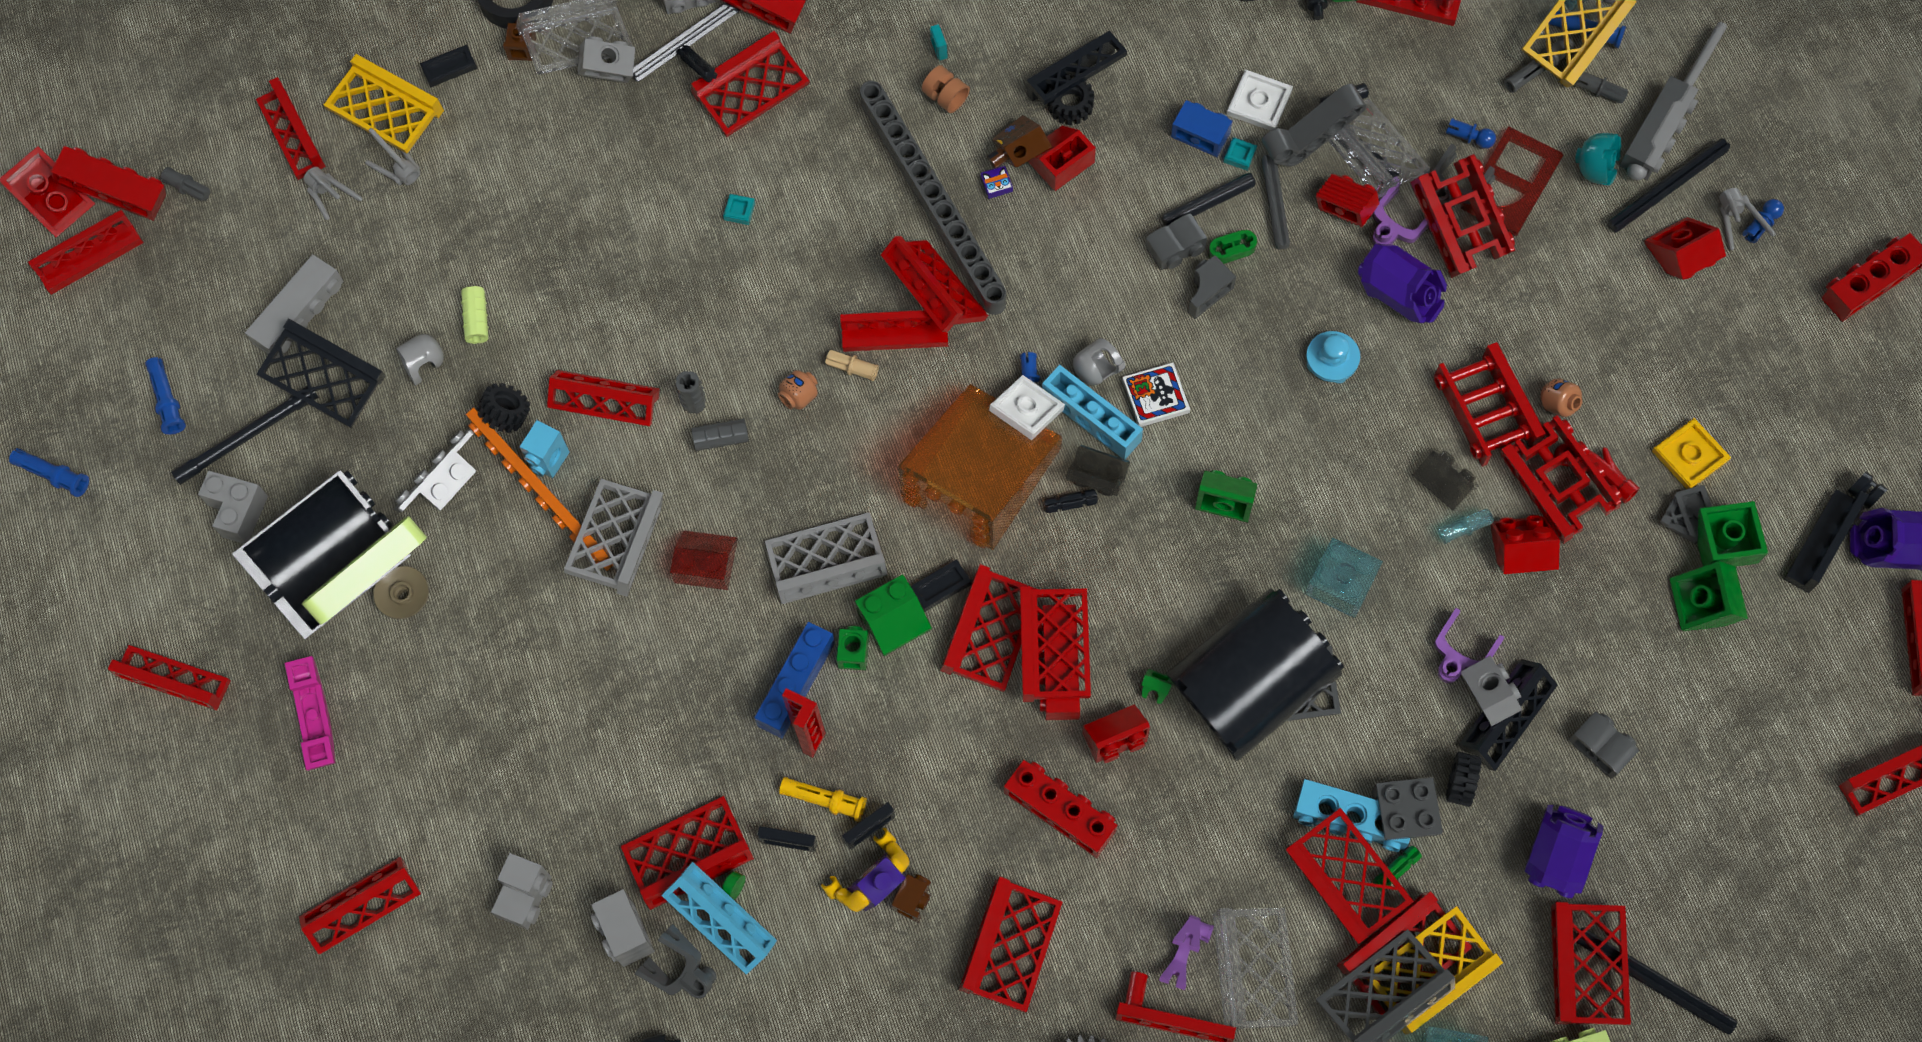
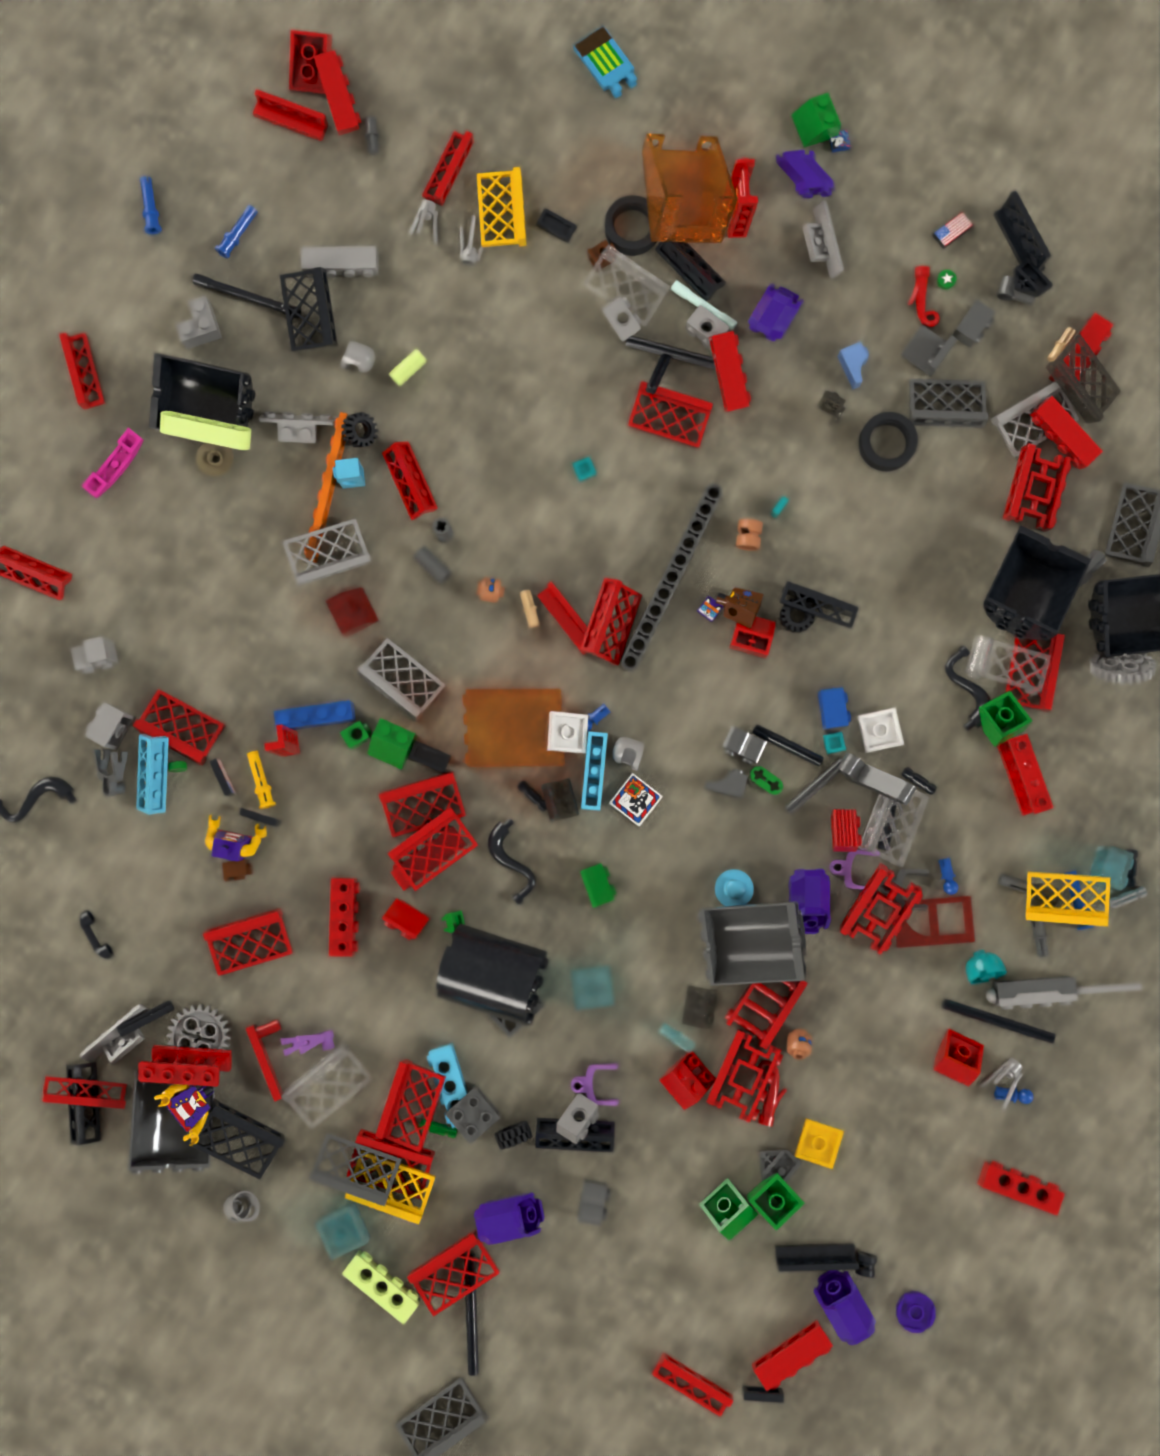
camera: 55 degrees right, 15 degrees up
(1106, 581) = (495, 848): none -> black animal
(1412, 359) = (754, 943): none -> dark grey cylinder

